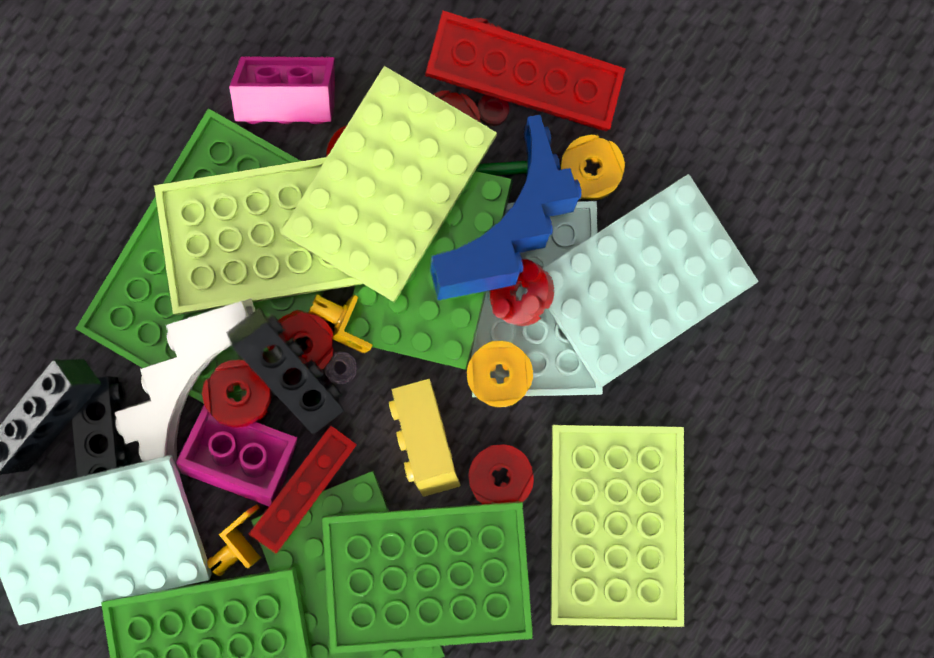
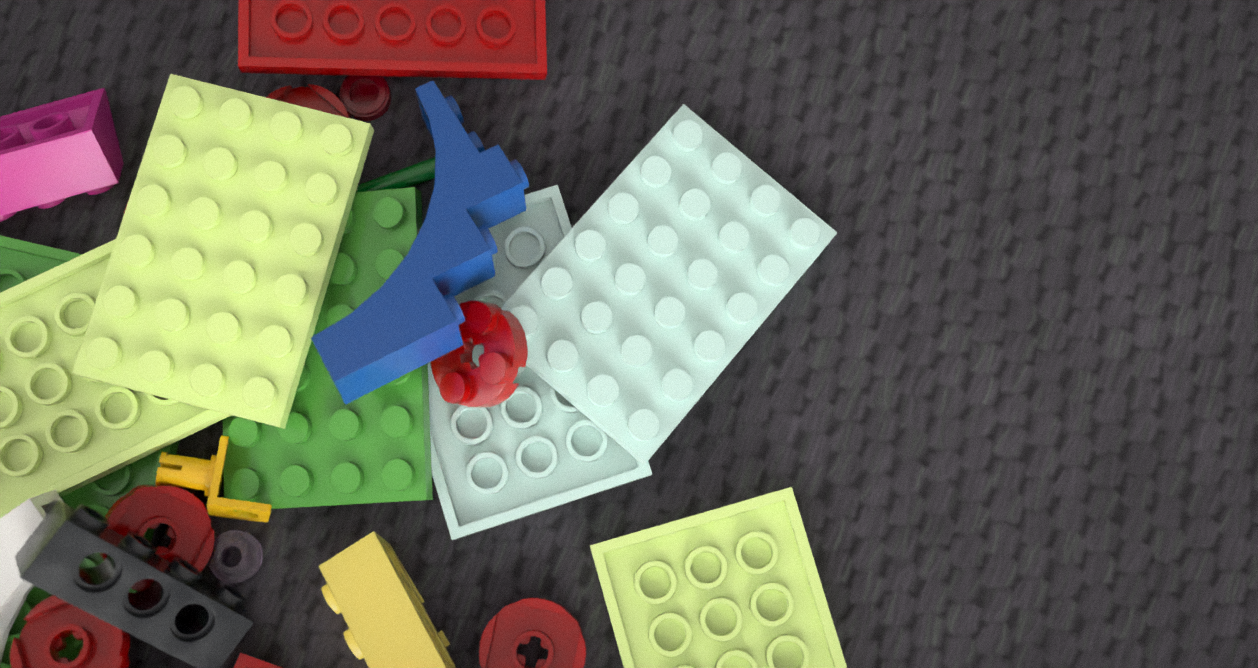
camera: 20 degrees left, 5 degrees down
(511, 359) = (454, 477): yellow plate -> none
(598, 151) = (542, 111): yellow plate -> none

